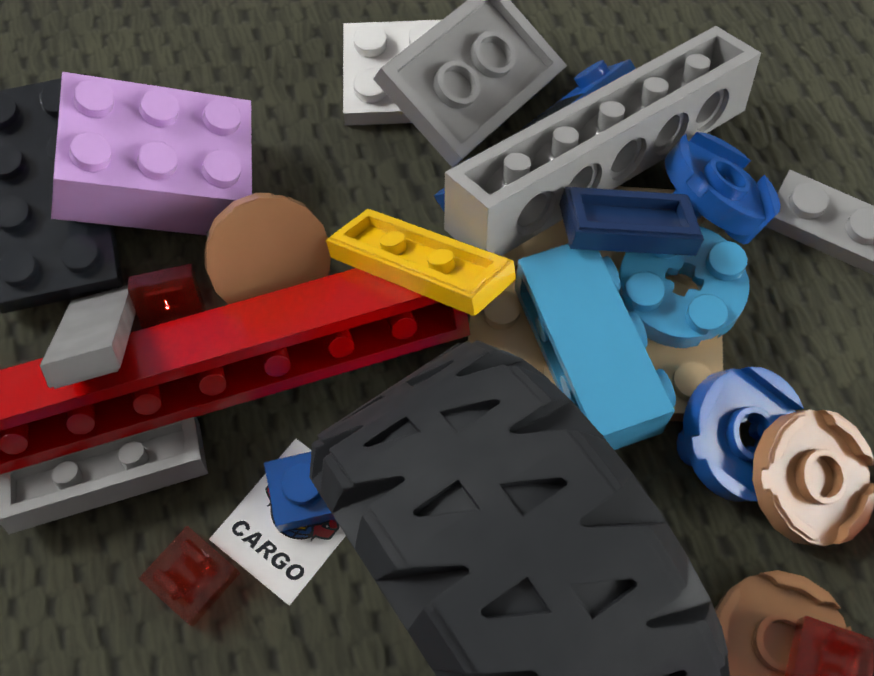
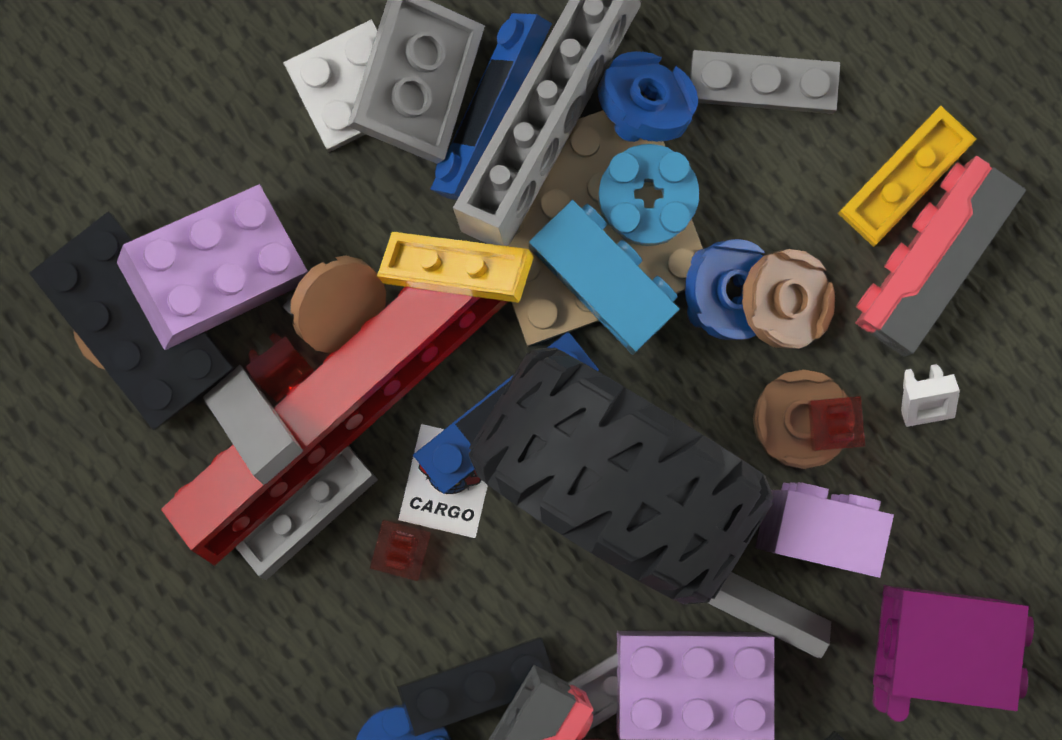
camera: 25 degrees left, 20 degrees up
(630, 221) = (595, 175): dark blue tile -> none

